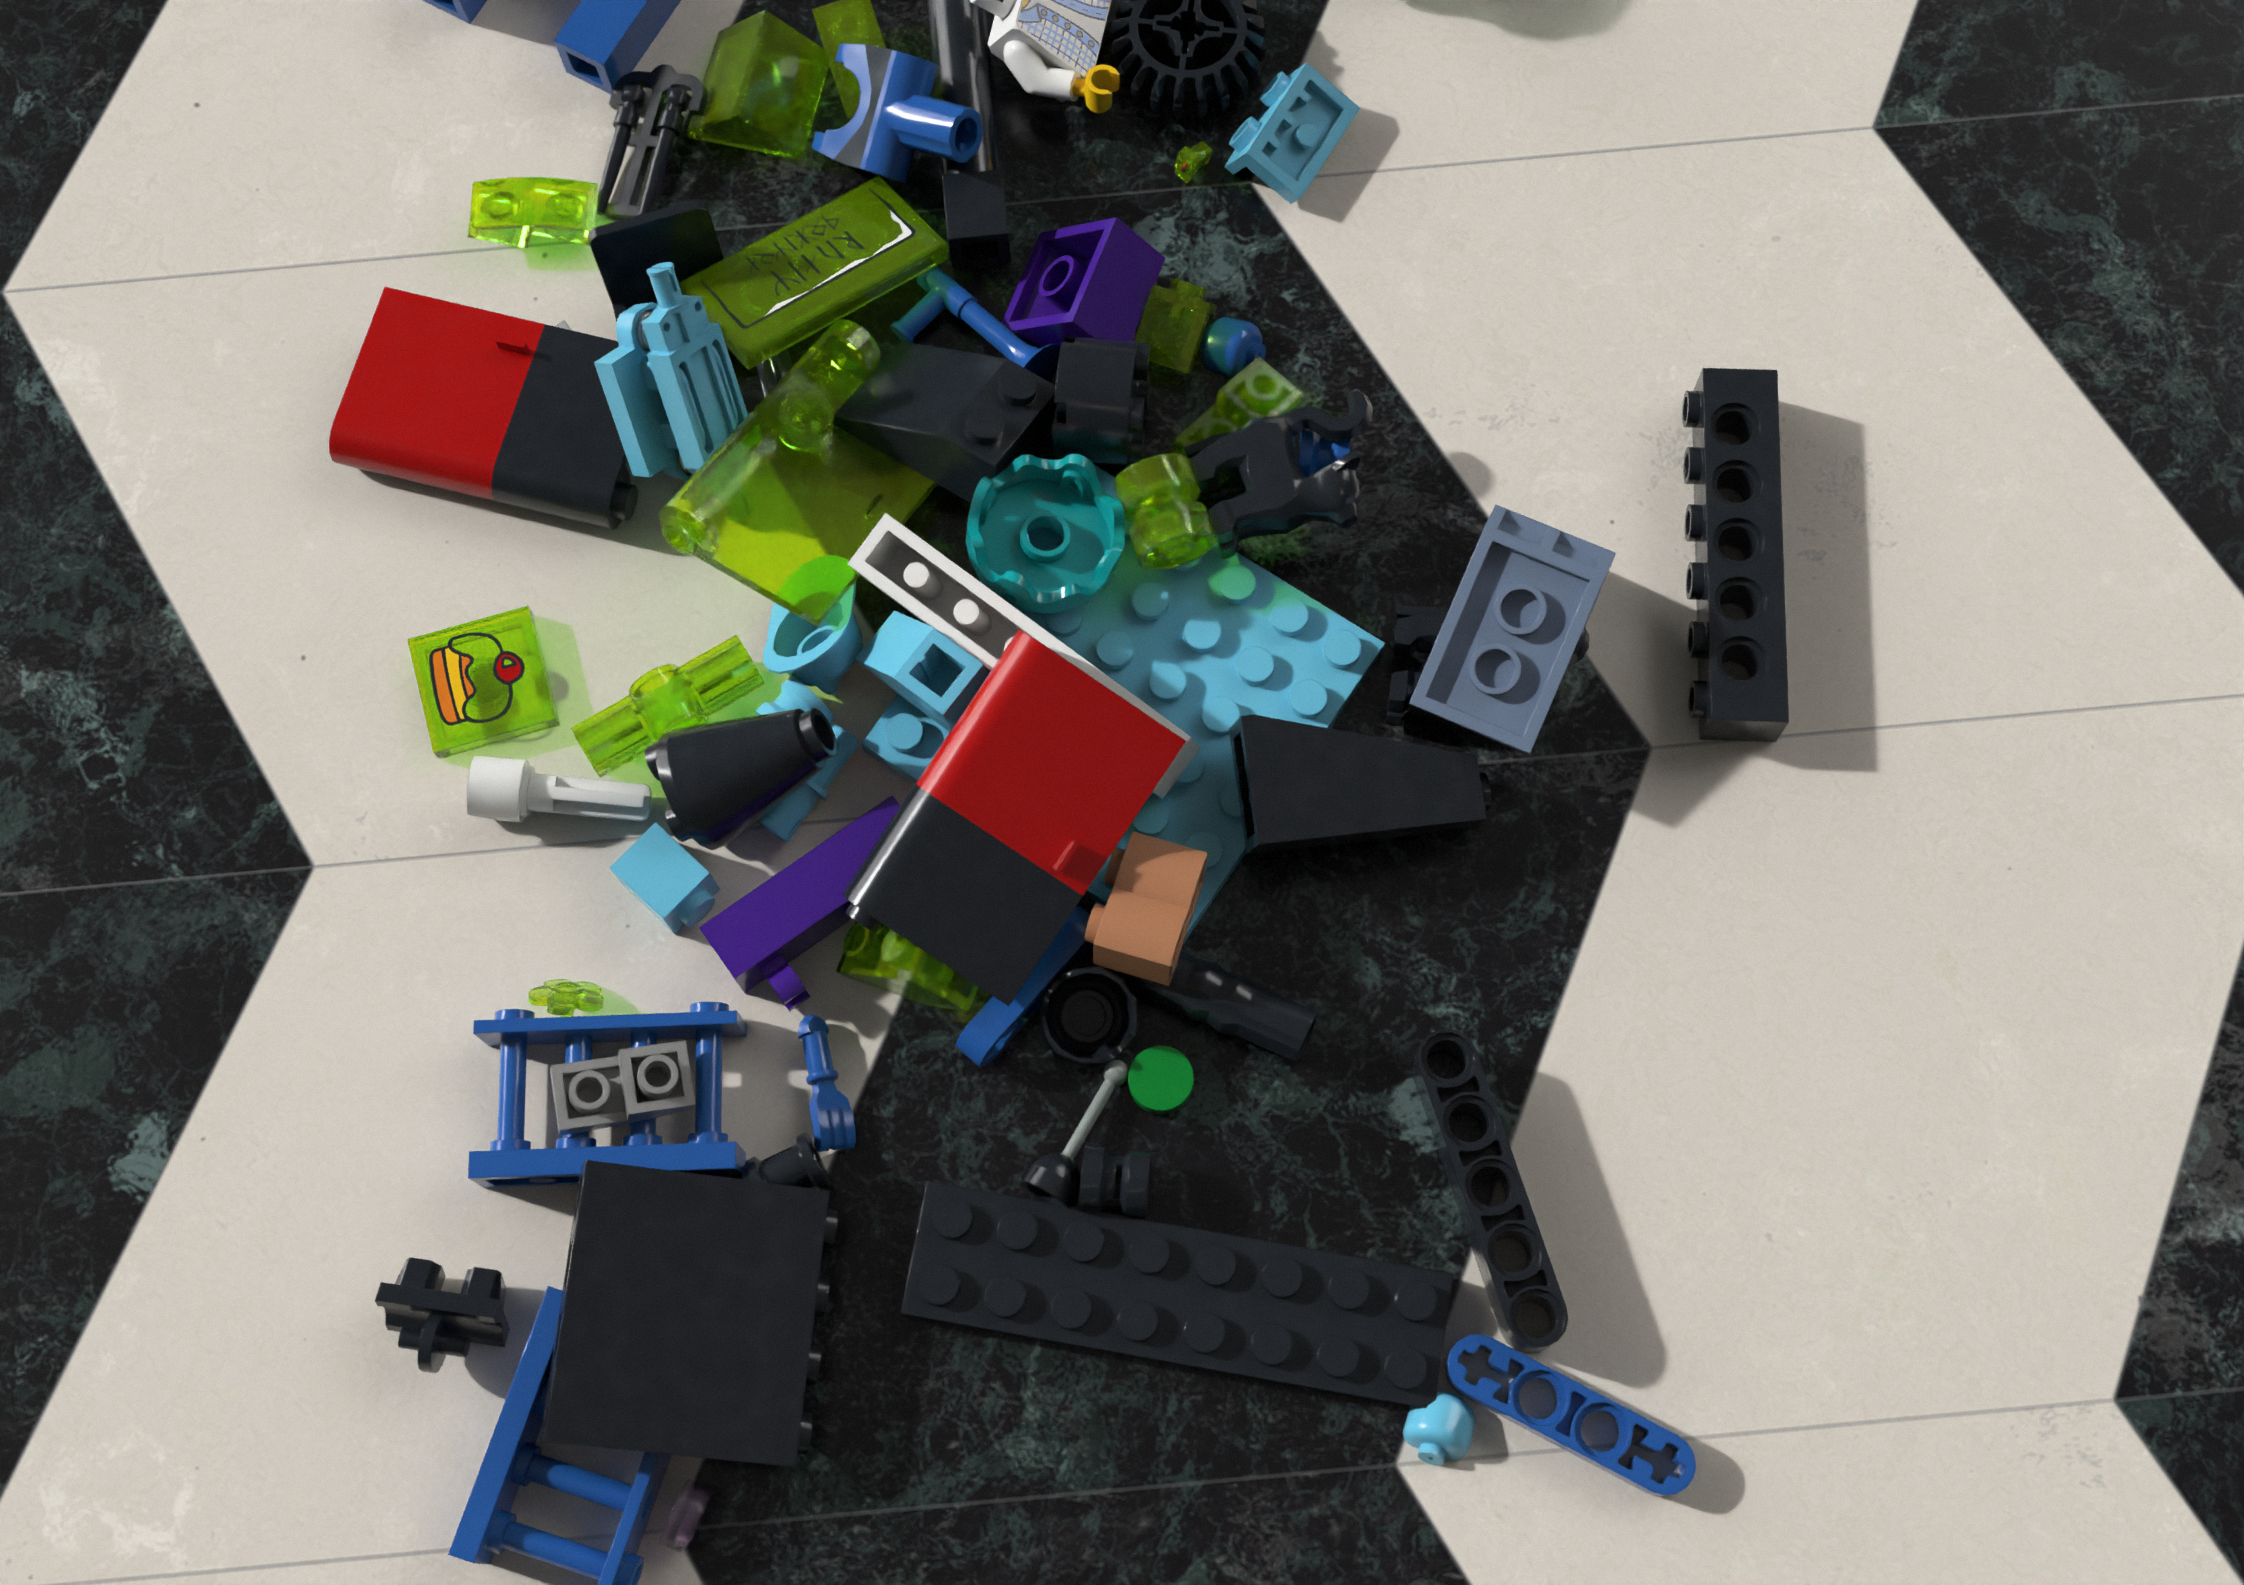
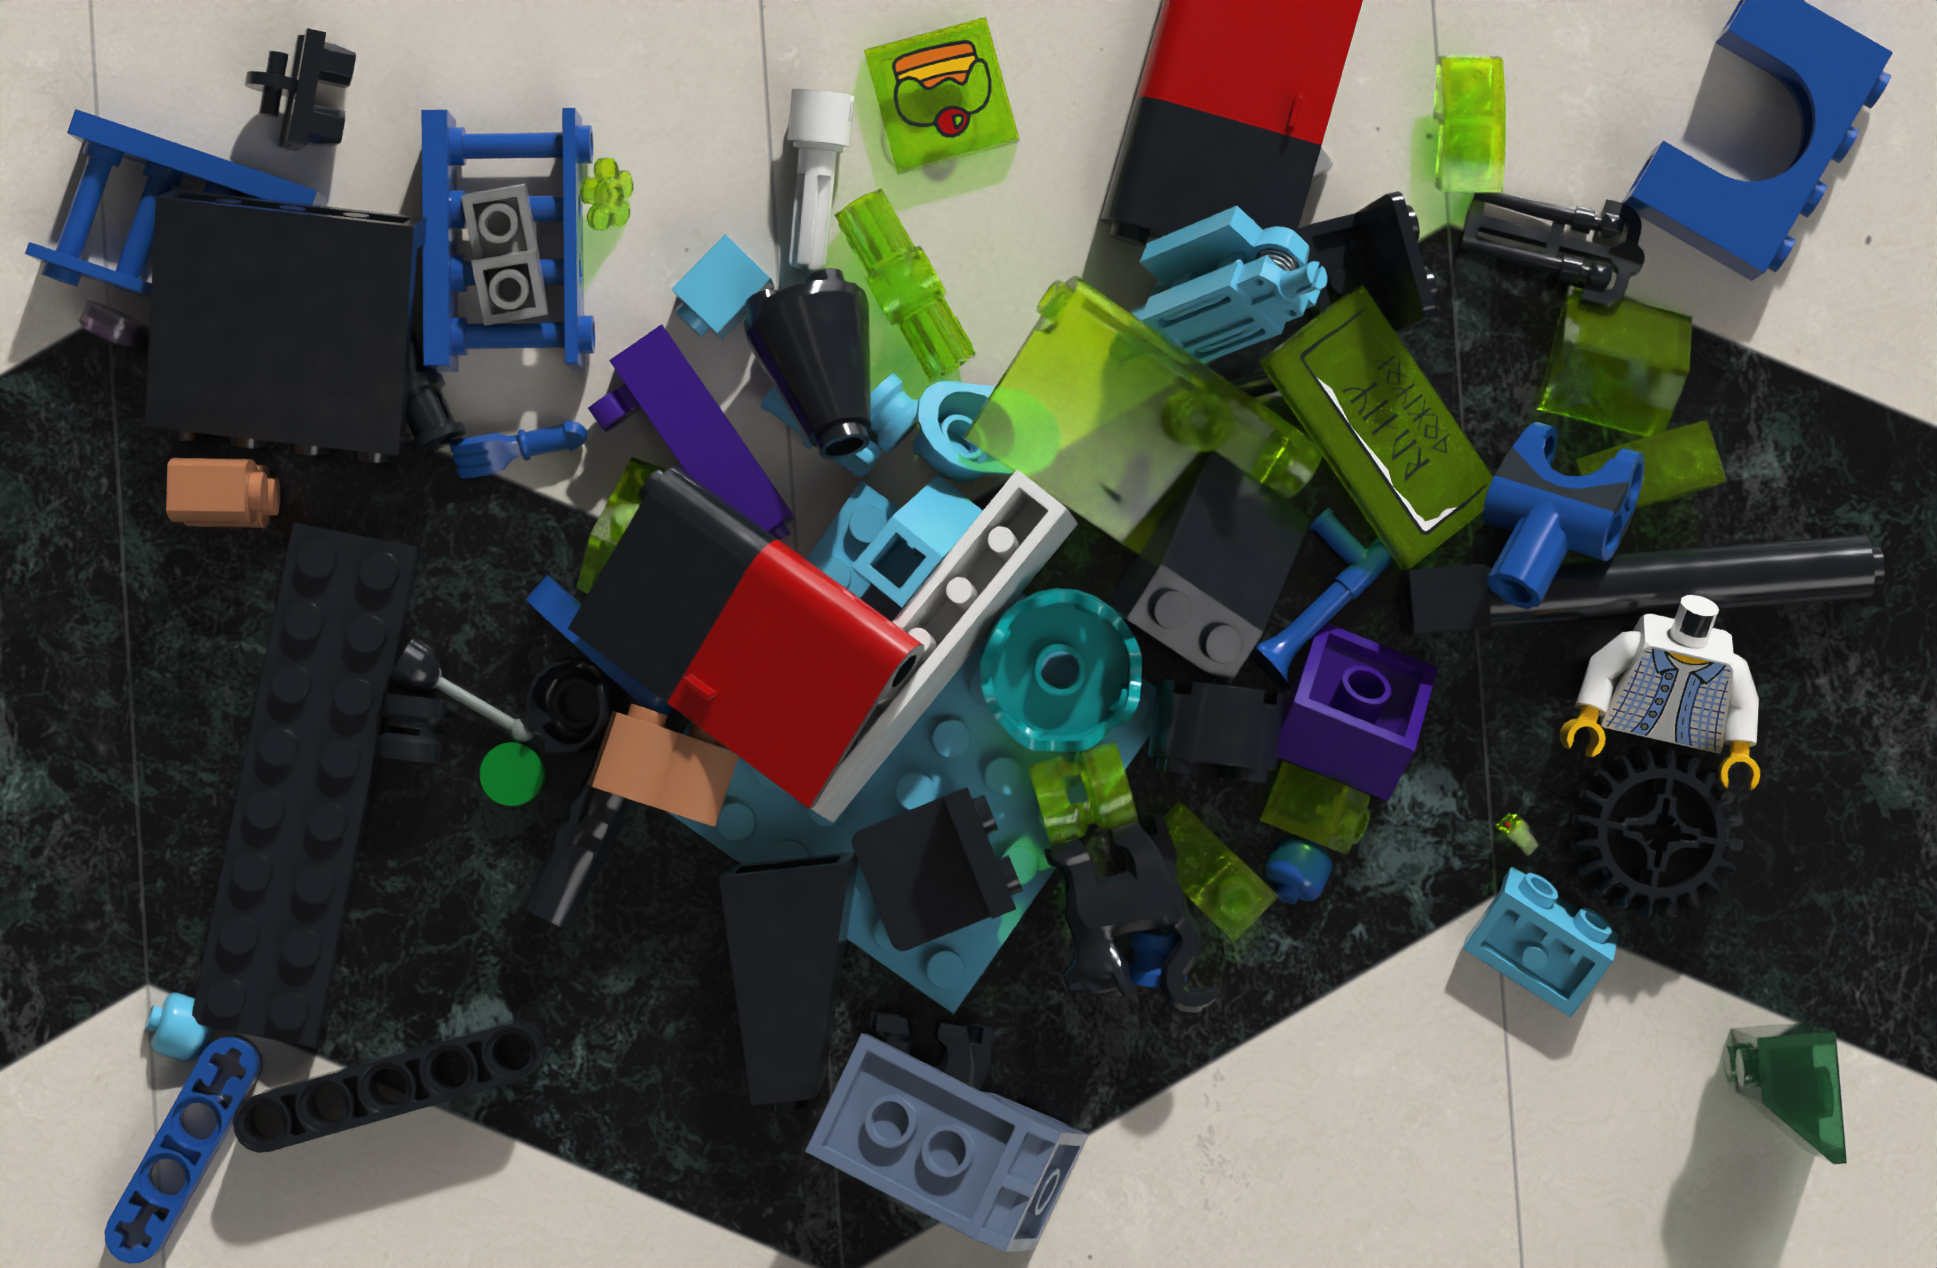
camera: 95 degrees right, 15 degrees up
(867, 1377) = (221, 493): none -> nougat brick
(1241, 642) = (936, 869): none -> black bracket

